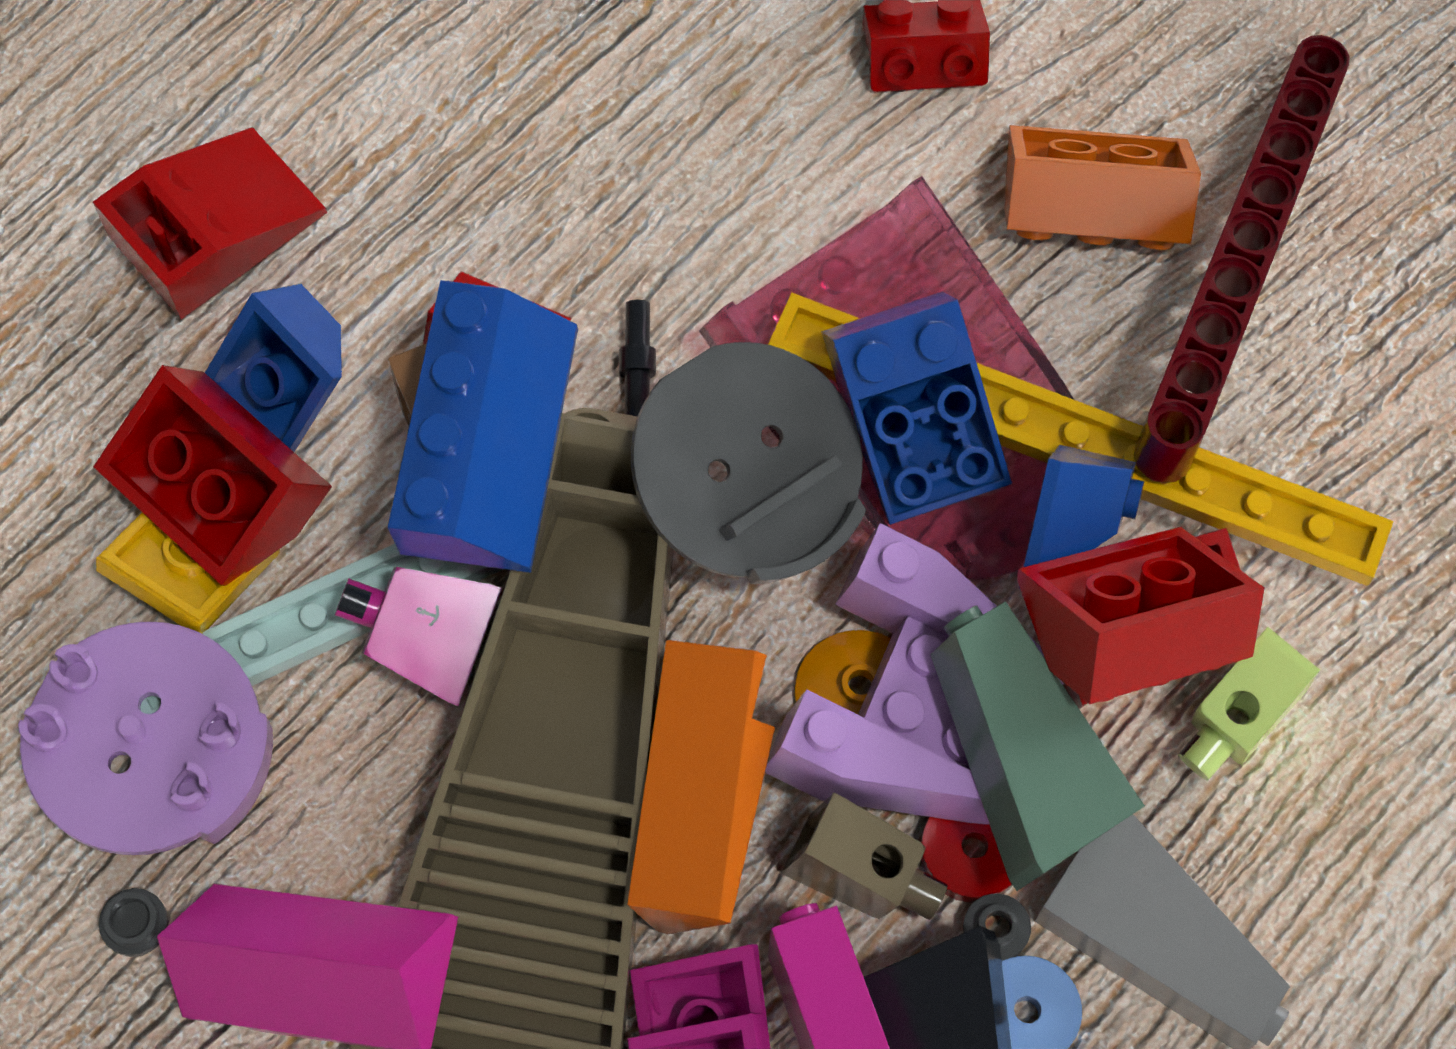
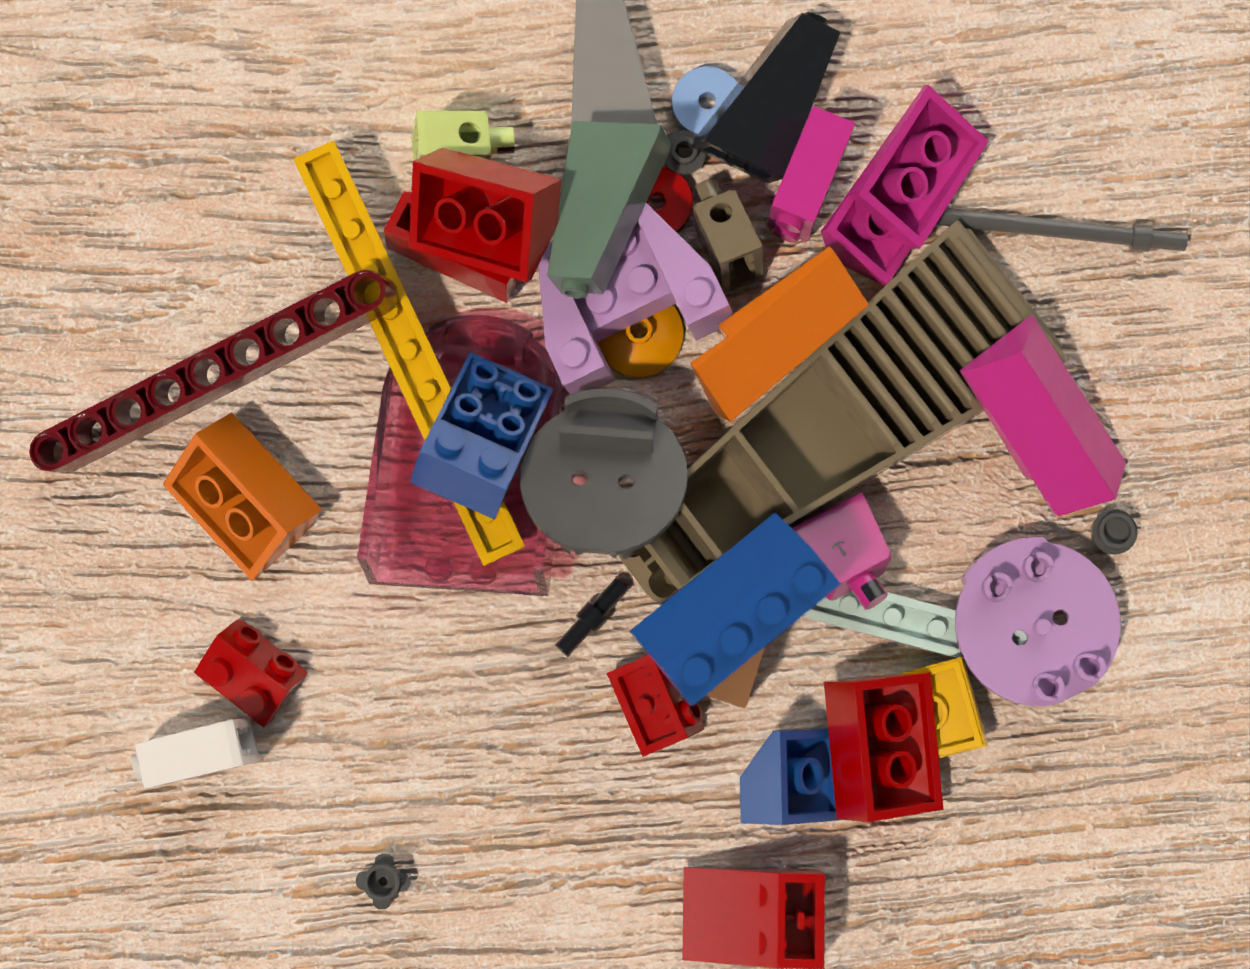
camera: 130 degrees left, 15 degrees up
(1081, 503) = (453, 301): blue slope -> none

